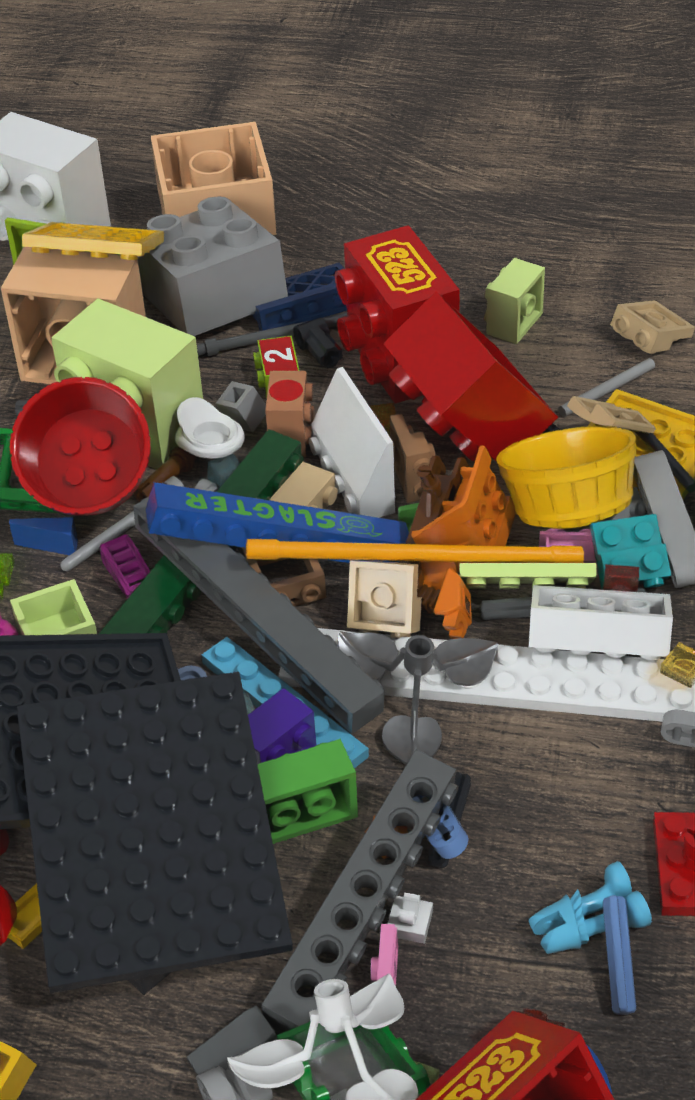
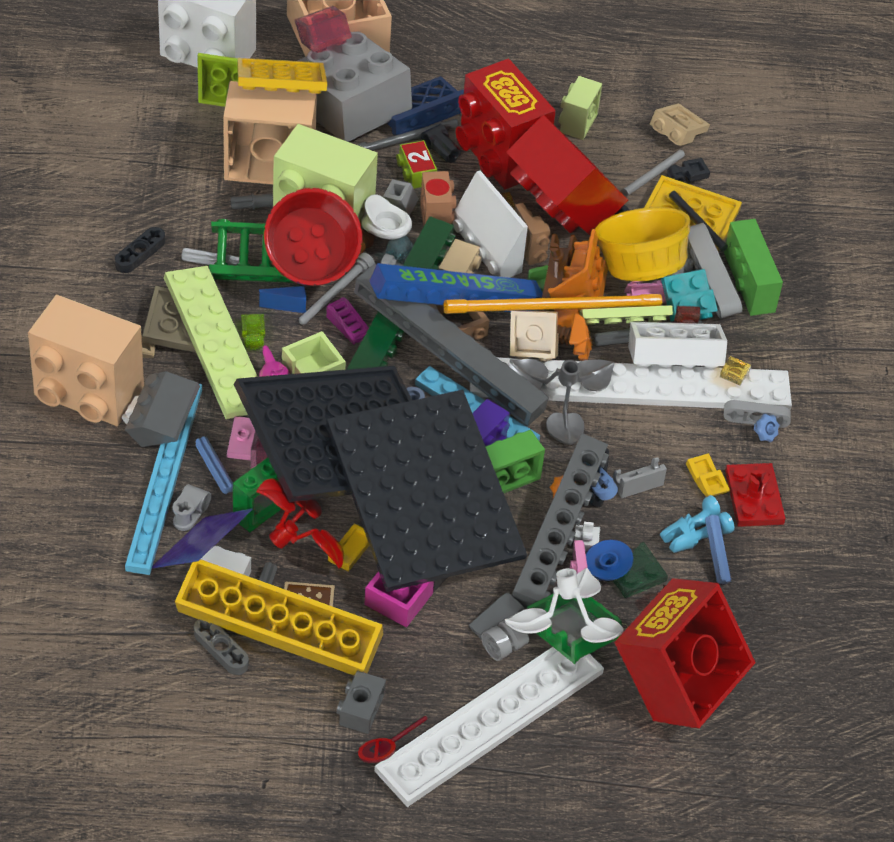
camera: 15 degrees left, 5 degrees up
(80, 1013) = (399, 604): none -> dark pink brick
(172, 190) = (323, 29): none -> clear pink brick
(434, 948) = (607, 553): none -> blue dish
(485, 984) = (643, 575): none -> clear green wing
(511, 827) = (640, 479): none -> light grey hinge
(610, 415) = (660, 197): tan slope -> none
(621, 829) = (706, 476): none -> yellow slope
(663, 383) = (692, 169): none -> black plate

